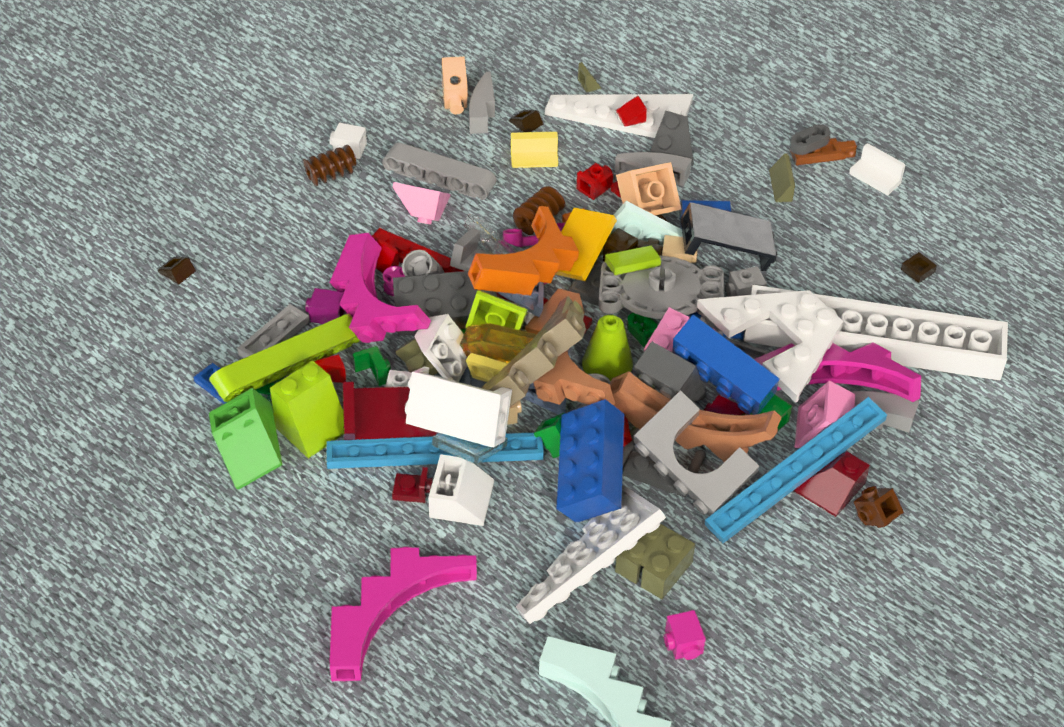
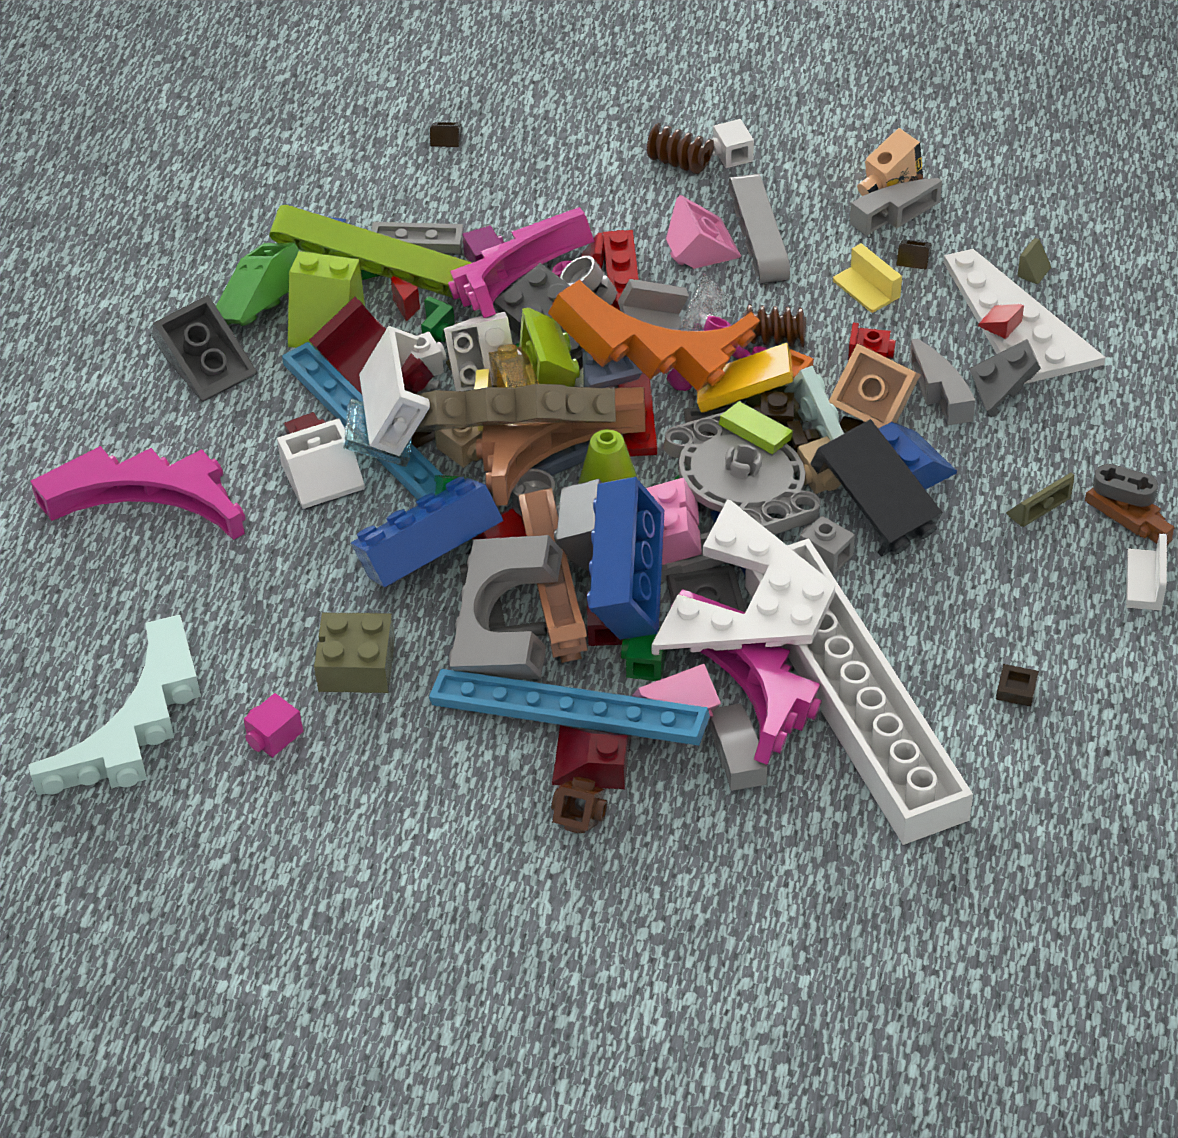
camera: 60 degrees right, 0 degrees up
(274, 504) = (202, 349): none -> dark grey slope
(603, 541) = (305, 596): white wing -> none

